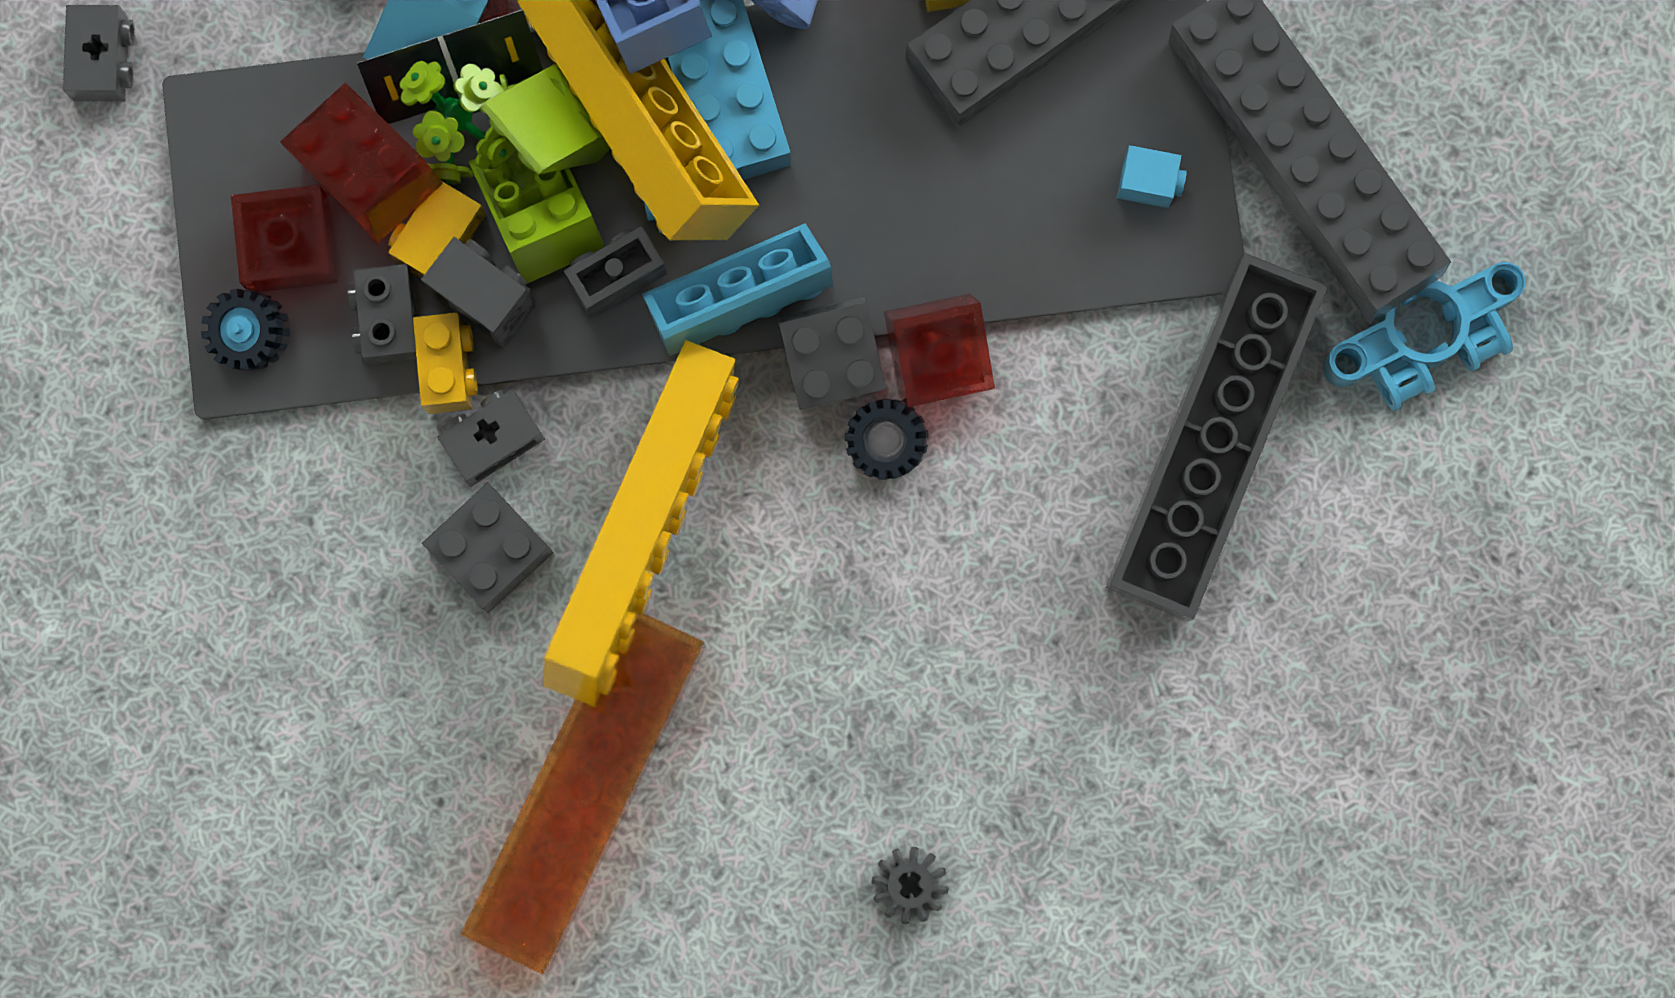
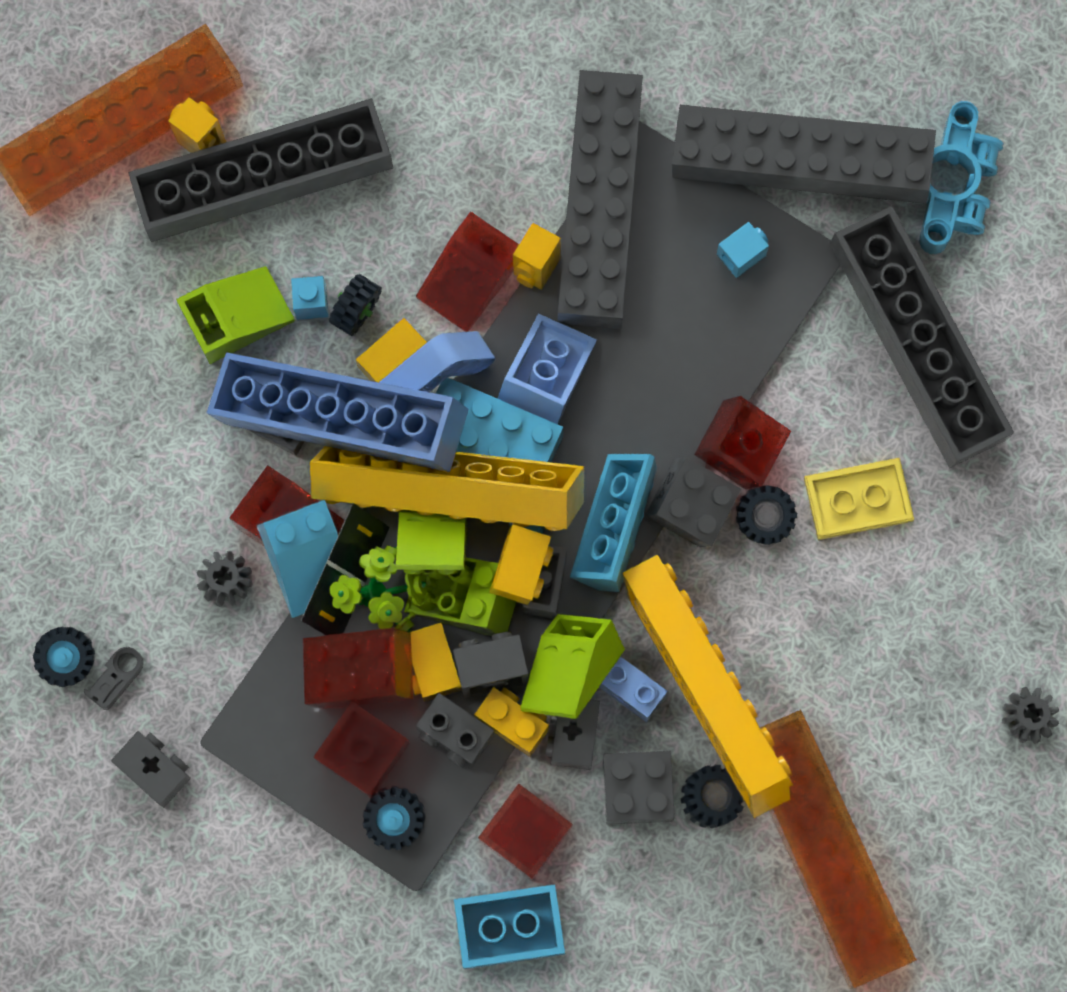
camera: 45 degrees left, 5 degrees down
(234, 538) = (509, 926): none -> medium azure brick
(345, 473) = (525, 832): none -> clear red brick
(532, 625) = (711, 797): none -> black wheel
(544, 370) = (571, 665): none -> lime slope
(584, 452) = (633, 689): none -> light blue brick
(600, 229) = (521, 565): none -> yellow brick
(841, 87) = (547, 369): none -> light blue slope
(990, 520) = (858, 498): none -> light yellow tile

